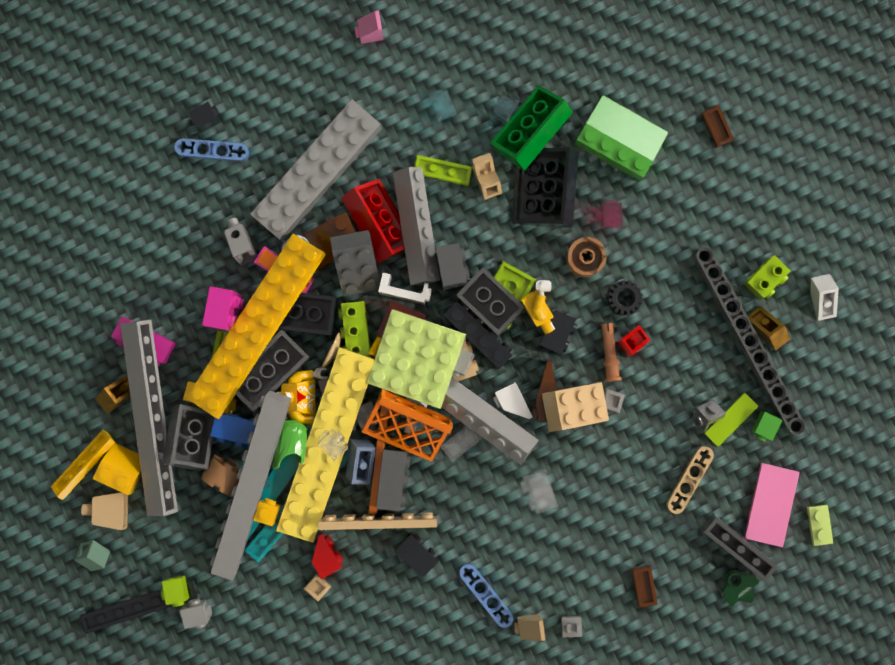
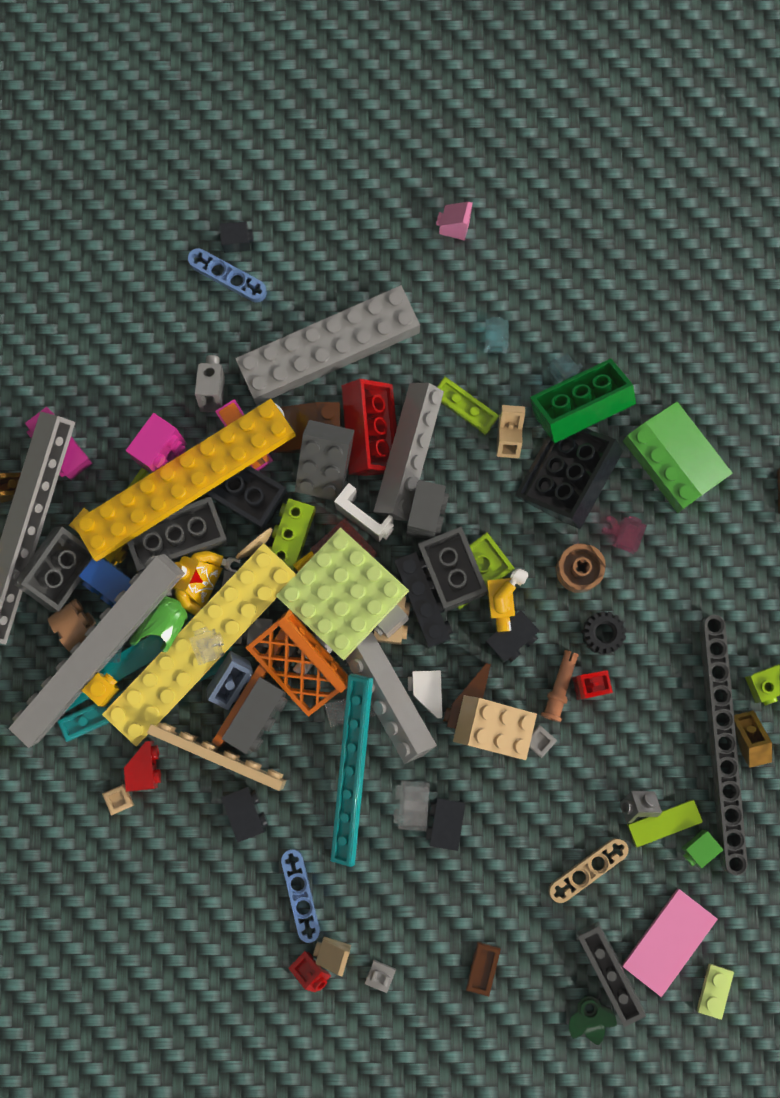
camera: 30 degrees right, 5 degrees down
(482, 485) = (351, 769): none -> teal tile
(518, 649) = (308, 973): none -> red bracket
(570, 493) = (446, 823): none -> black brick

